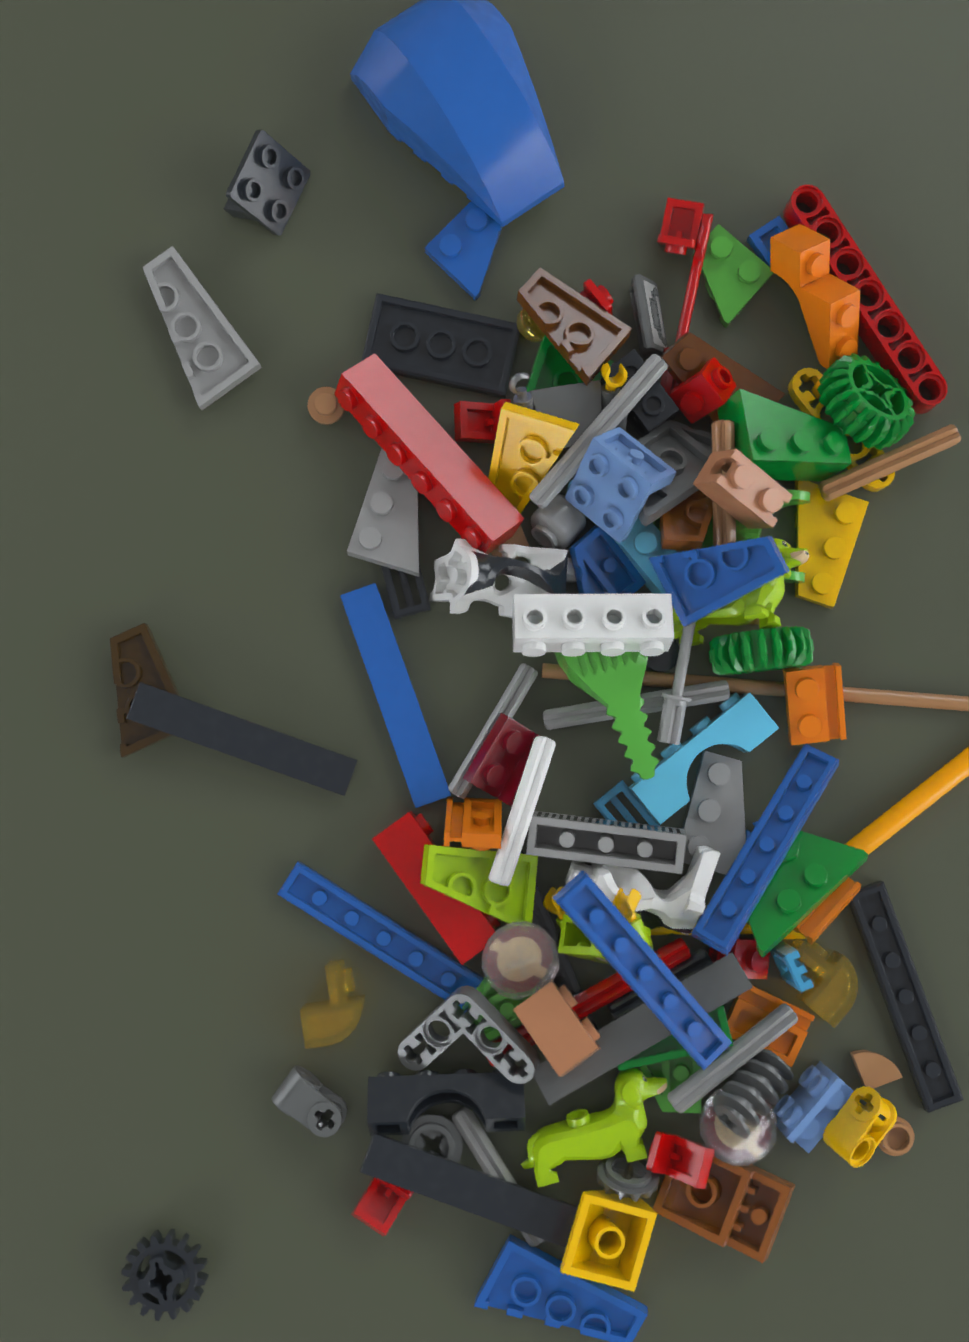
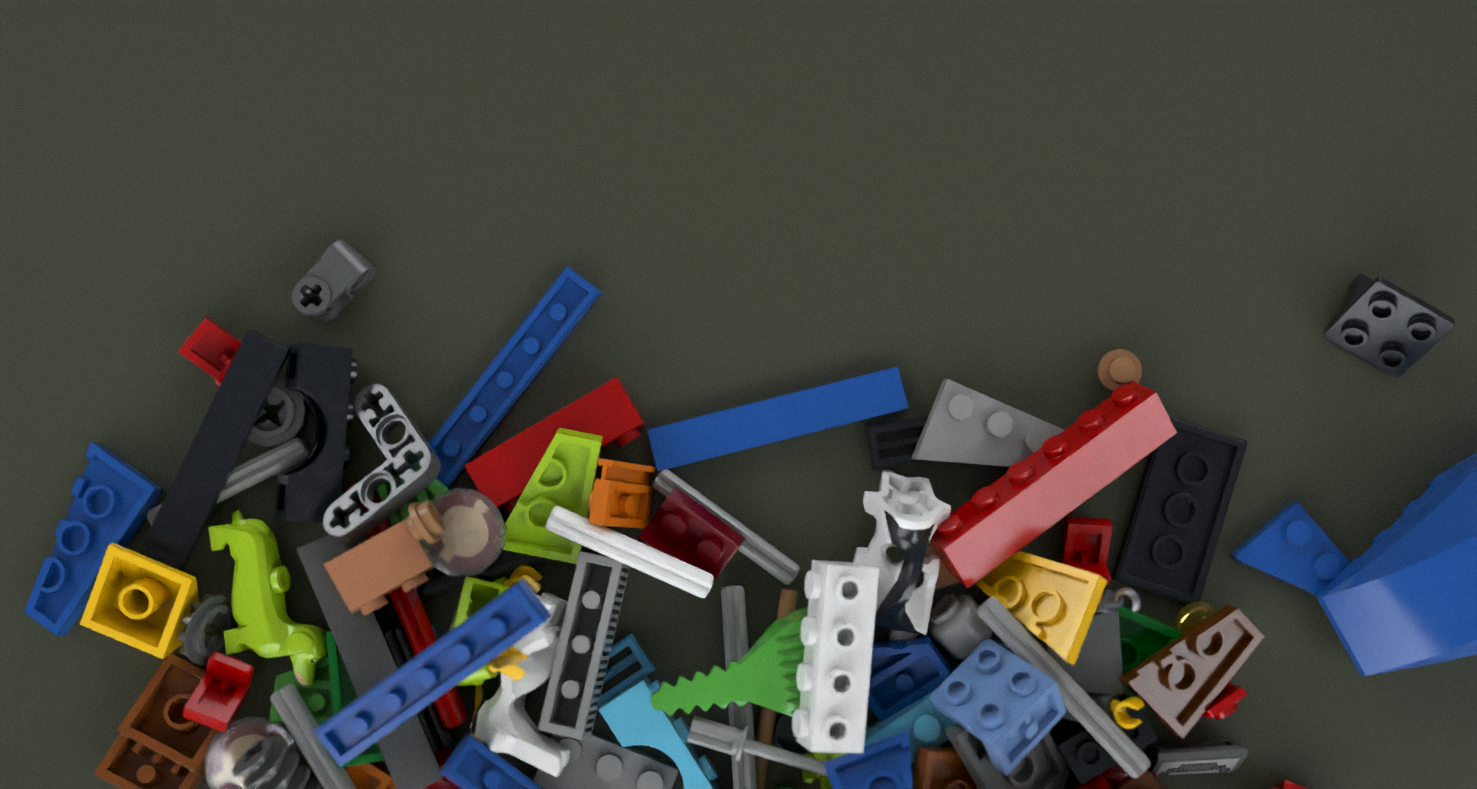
camera: 100 degrees right, 0 degrees up
(136, 661) = (808, 138): dark brown wing -> none
(155, 1289) = (153, 95): black gear -> none
(204, 339) = (1208, 238): light grey wing -> none
(241, 738) = (744, 241): black tile -> none
(333, 1019) = (422, 316): clear yellow brick -> none
(513, 992) = (425, 521): none -> medium nougat plate

